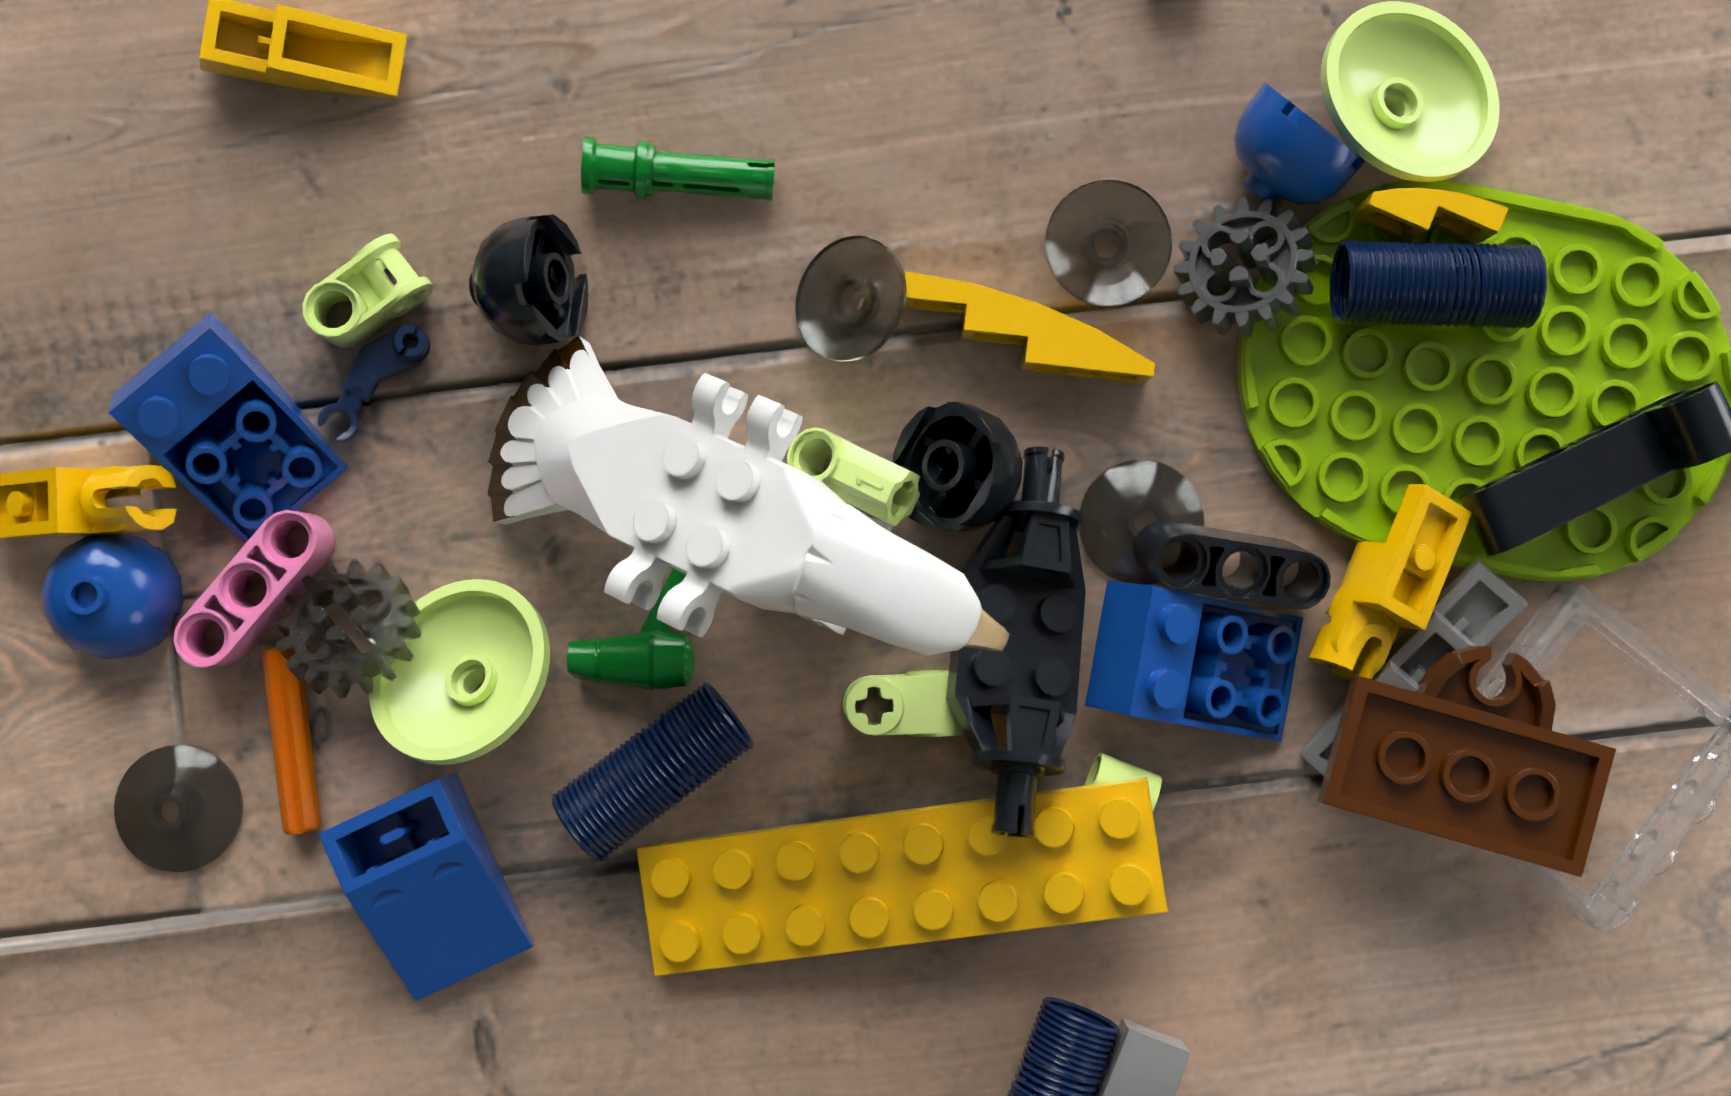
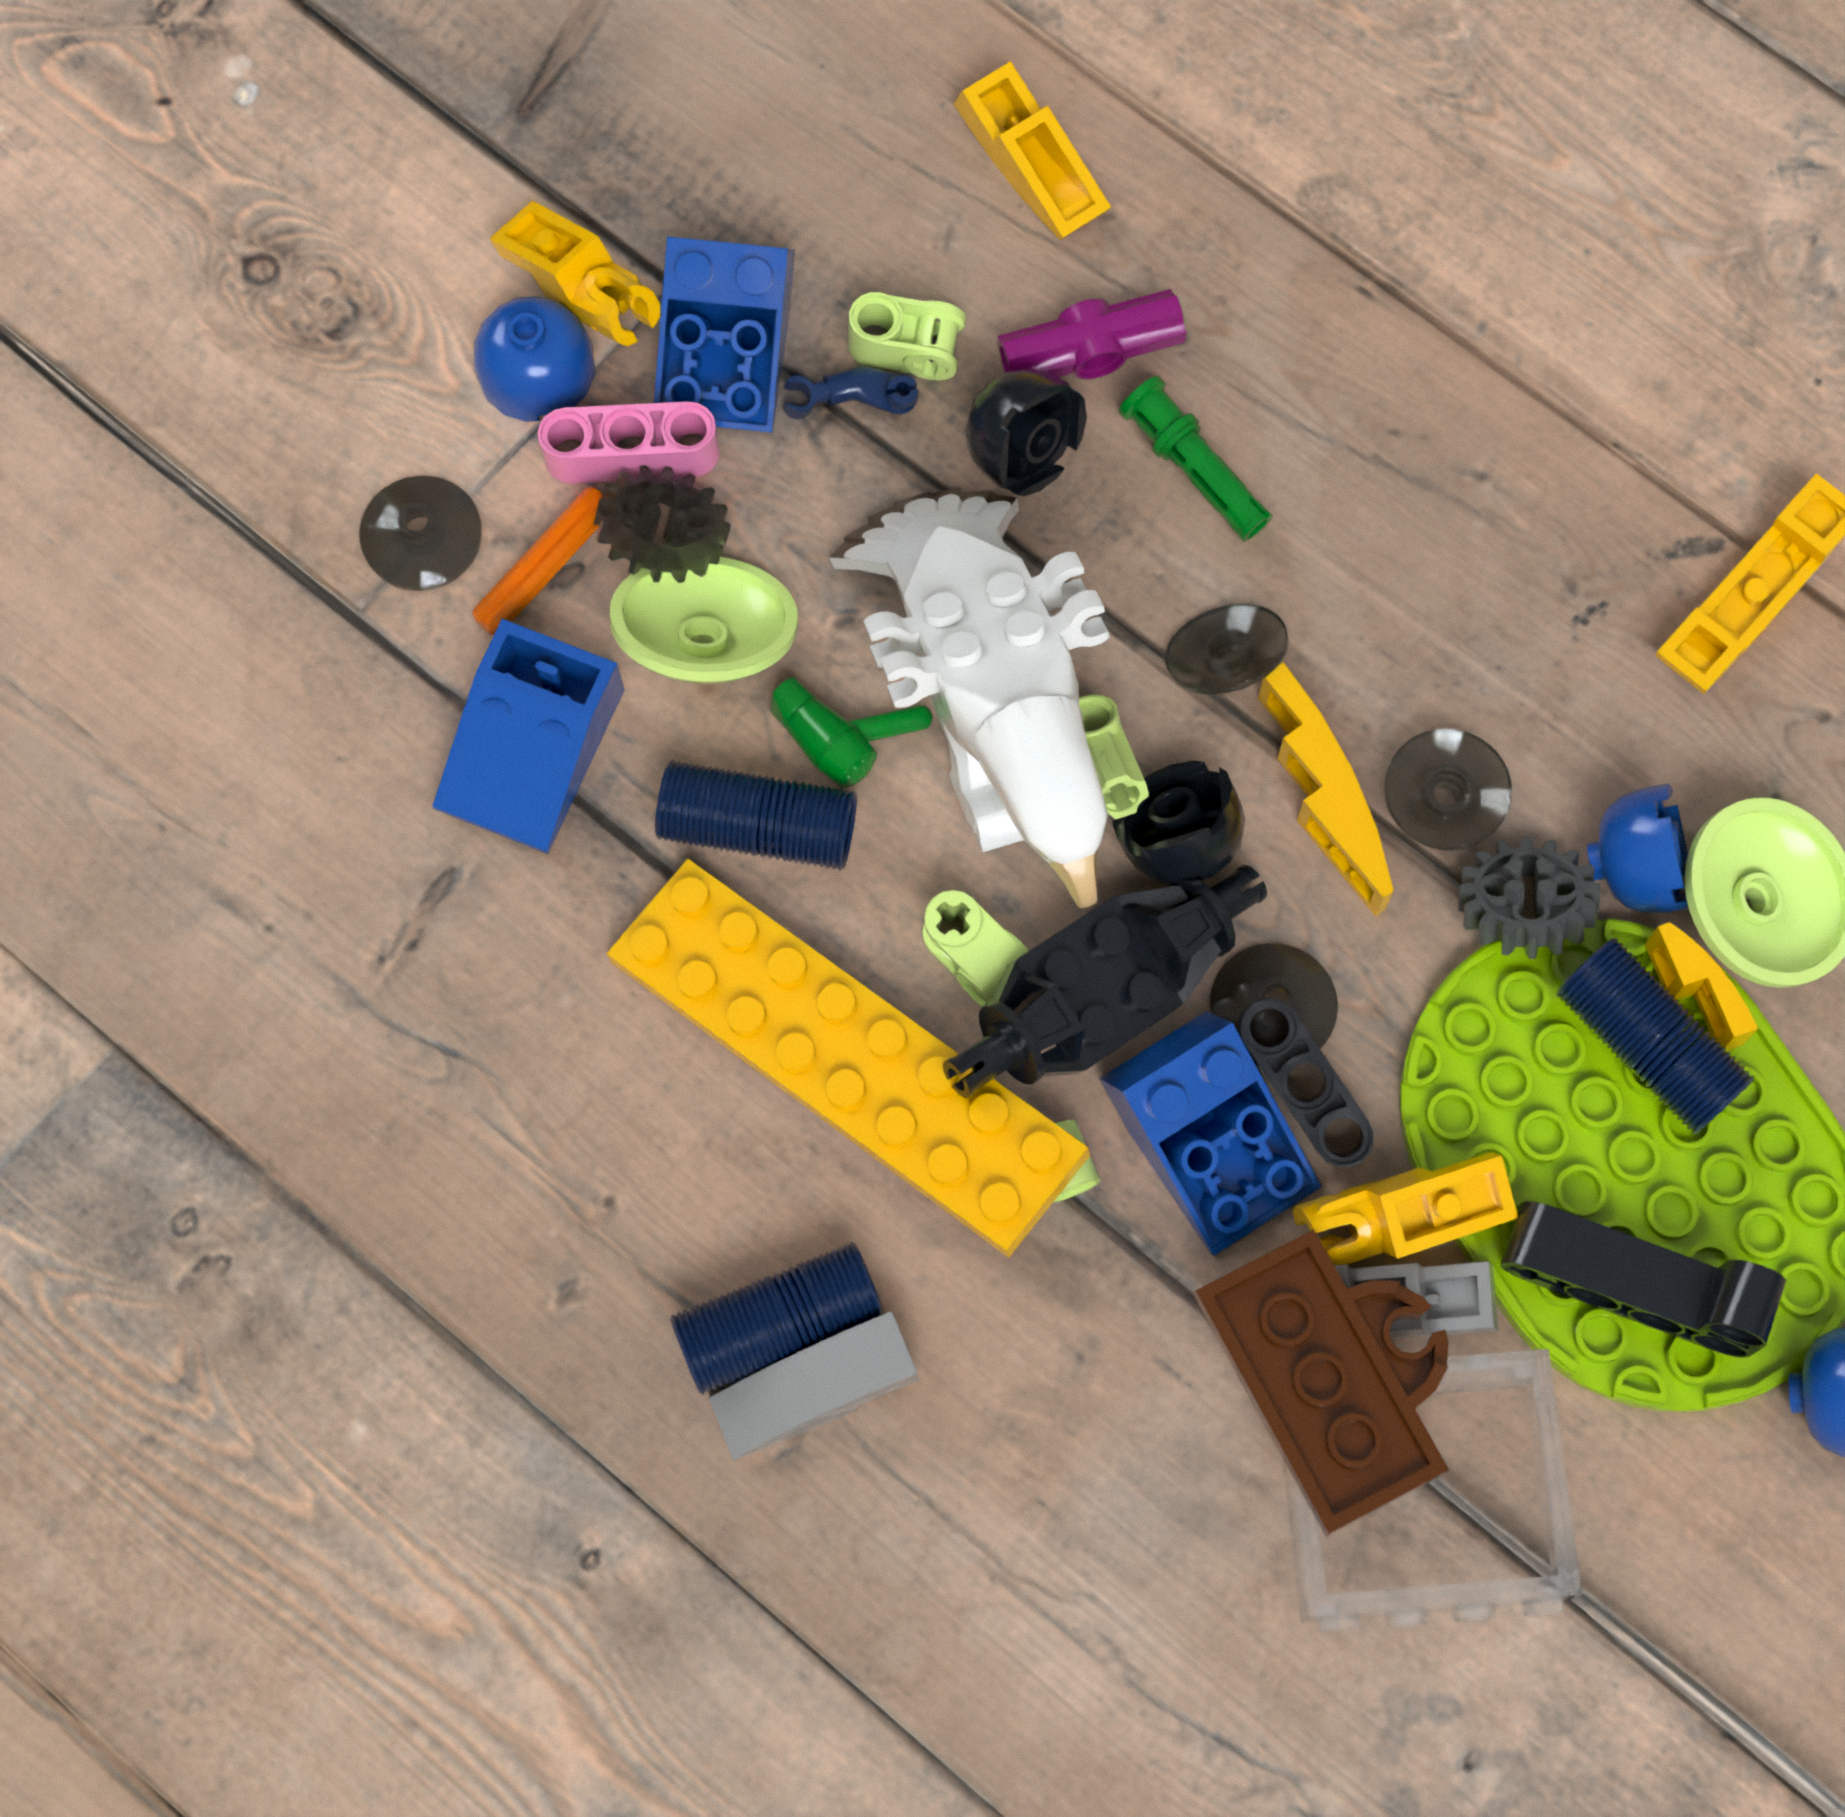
camera: 55 degrees right, 15 degrees down
(503, 153) = (1096, 337): none -> magenta piece

